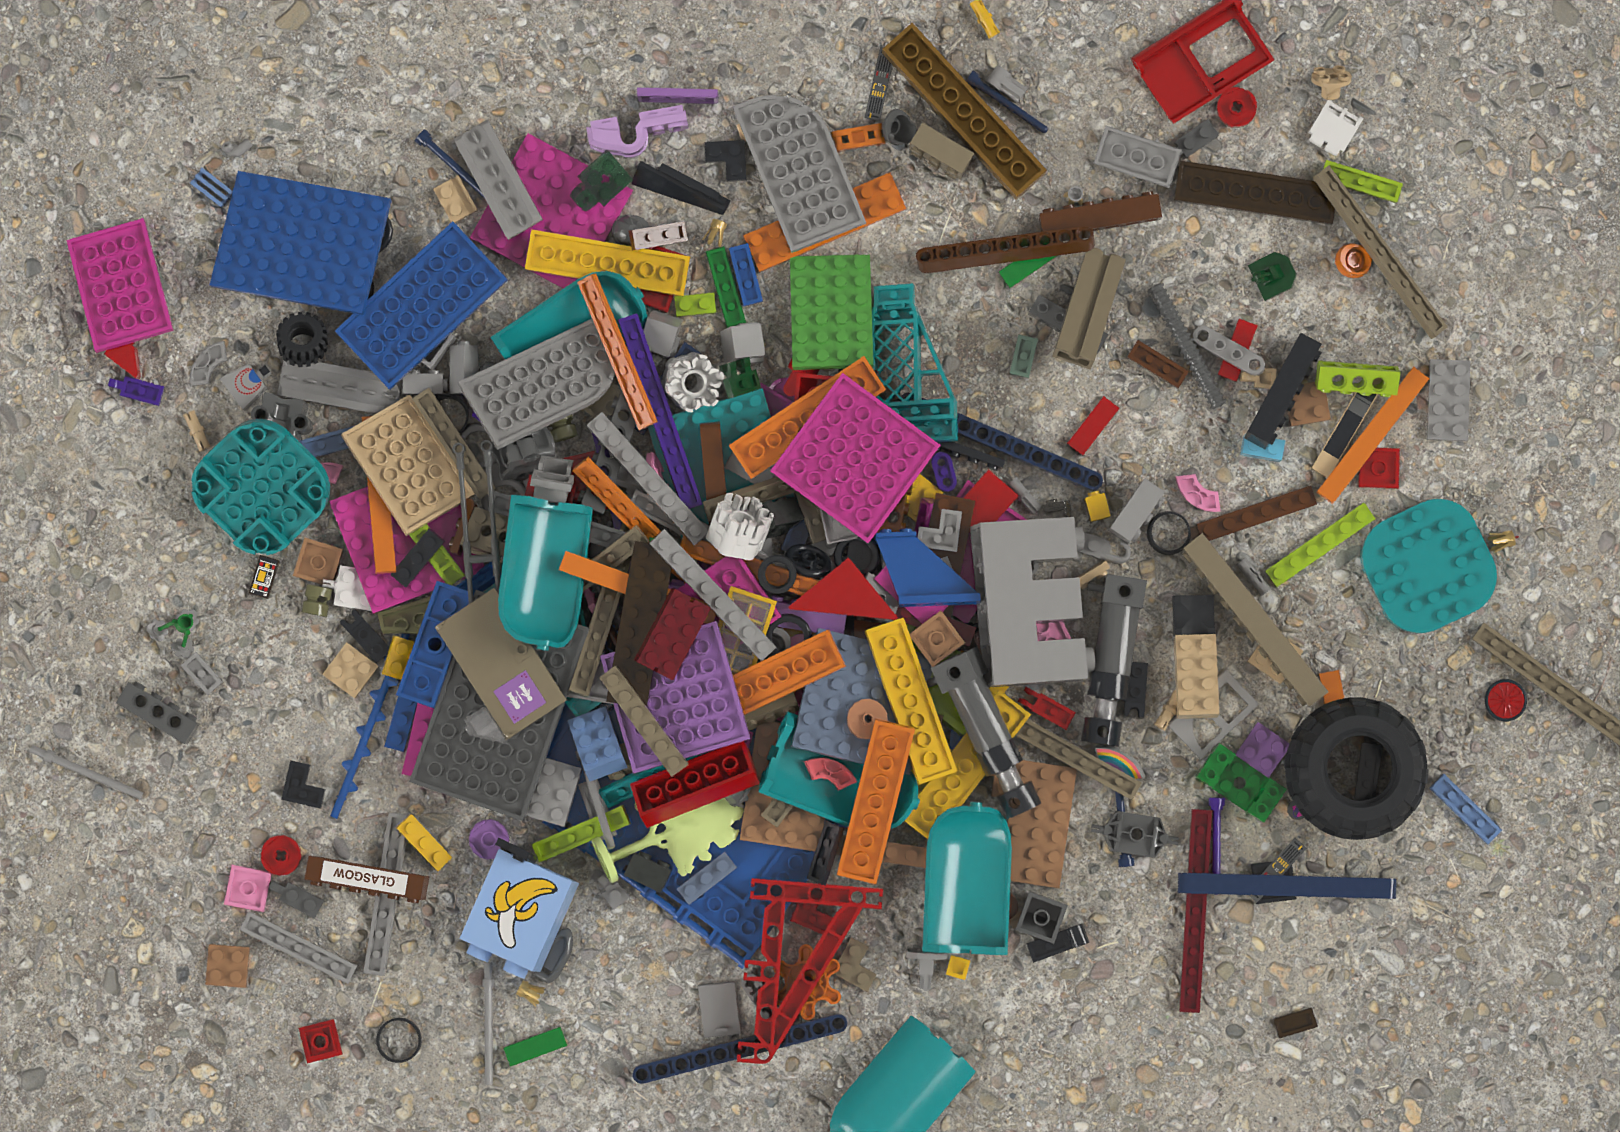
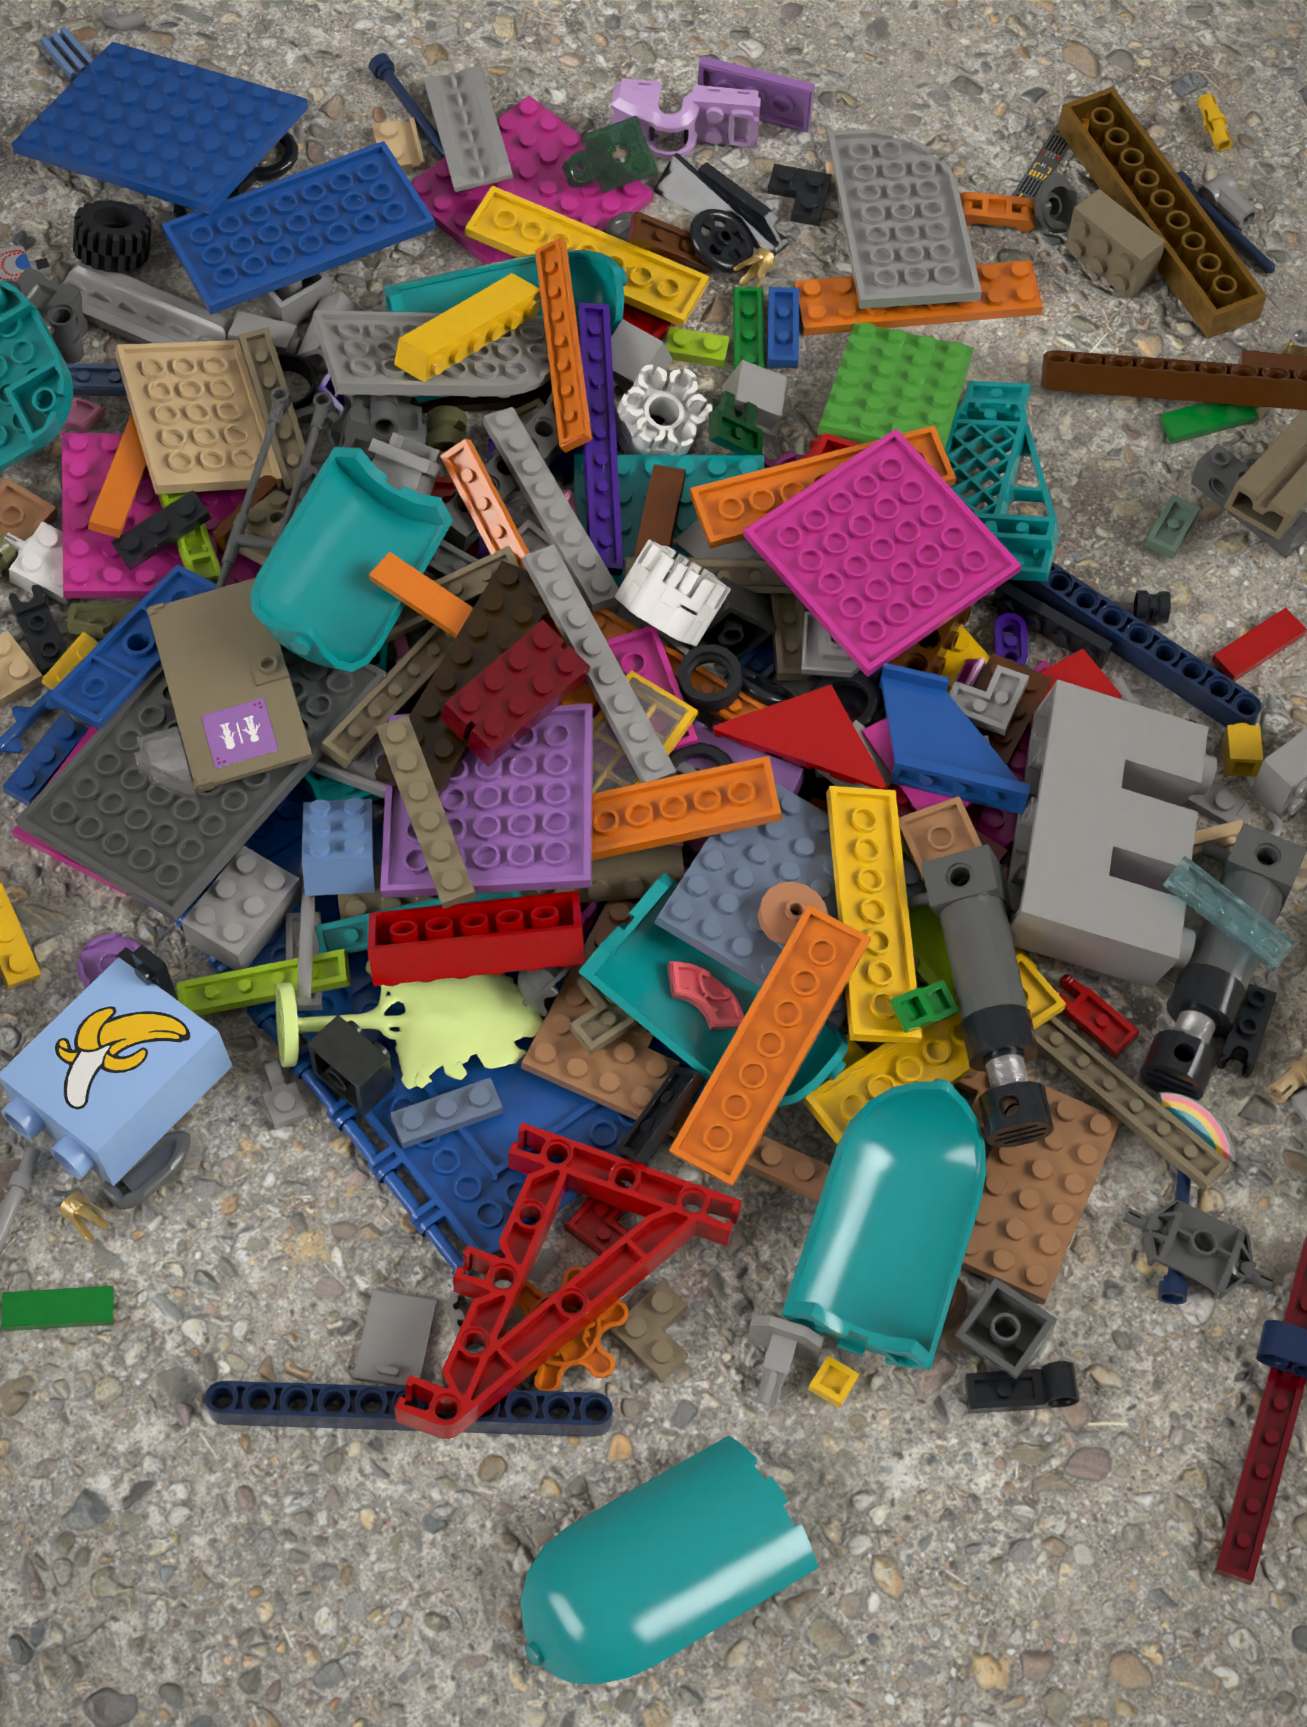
camera: 10 degrees right, 25 degrees down
(557, 362) = (467, 327): none -> yellow brick
(677, 230) = (720, 240): none -> black plate
(953, 754) = (924, 1006): none -> green slope
(1023, 420) = (1152, 606): none -> black wheel
(1110, 641) = (1229, 913): none -> clear light blue plate

